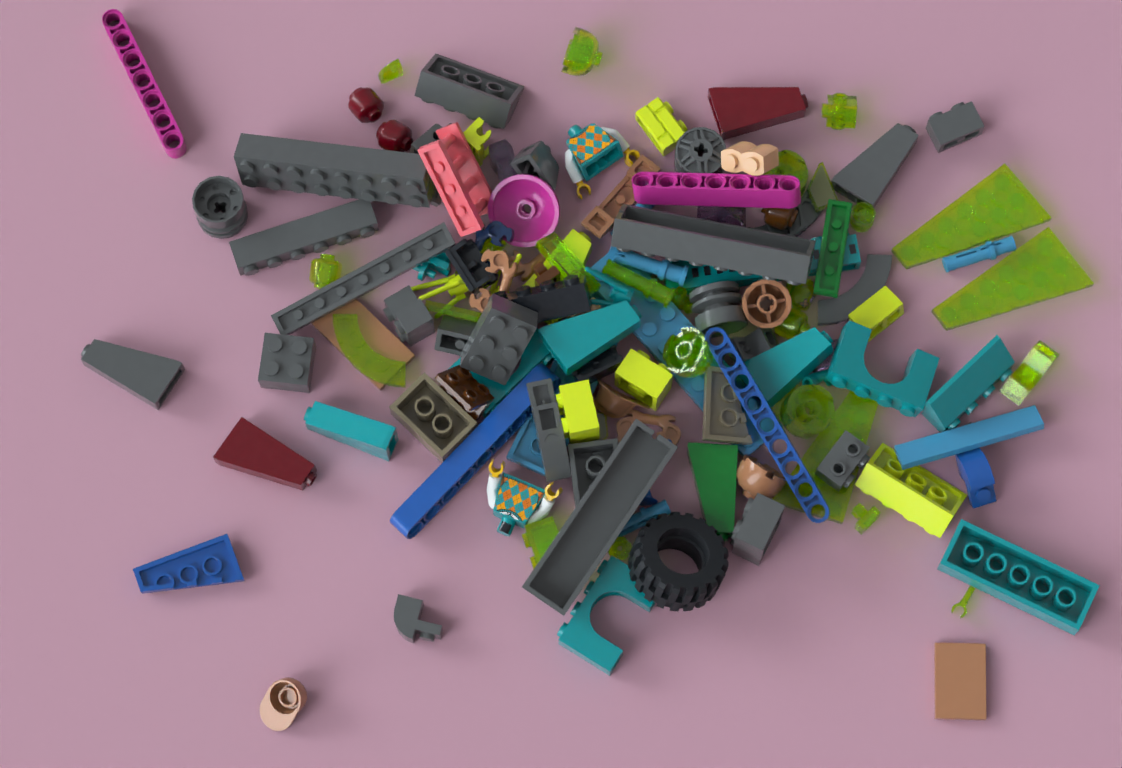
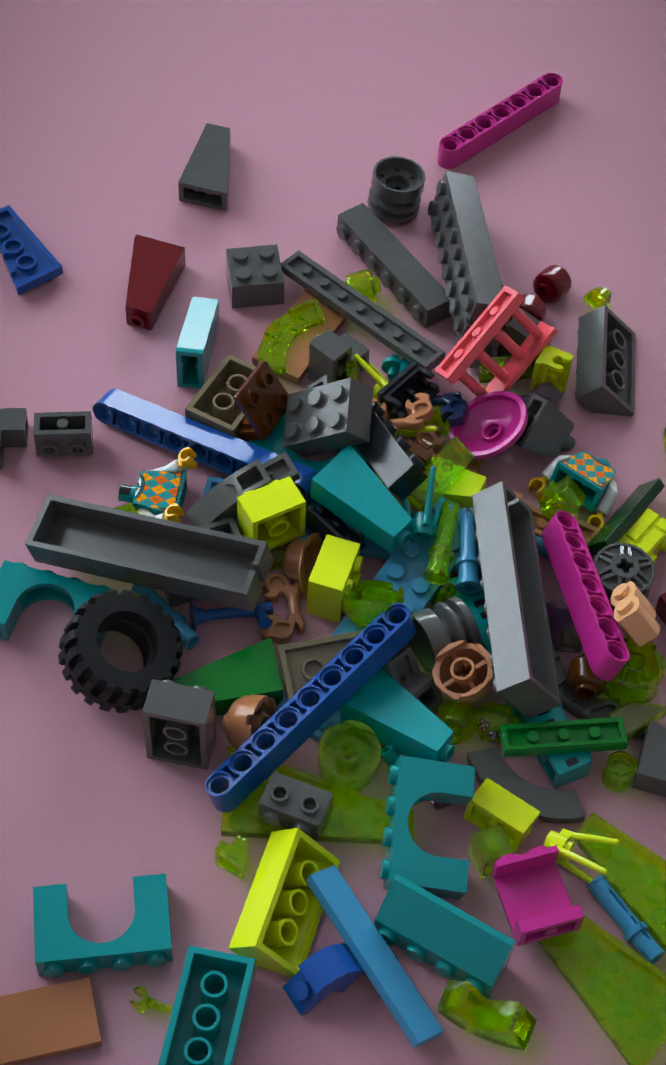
camera: 70 degrees right, 20 degrees down
(432, 566) = (63, 433): none -> dark grey brick
(613, 176) = (561, 496): none -> clear neon green brick
(637, 131) = (625, 515): none -> dark green tile
(906, 331) = (487, 847): none -> clear neon green brick
(915, 280) = (566, 849): none -> neon yellow plant
(917, 595) = (63, 951): none -> teal arch
(953, 311) = (535, 895): none -> dark pink panel

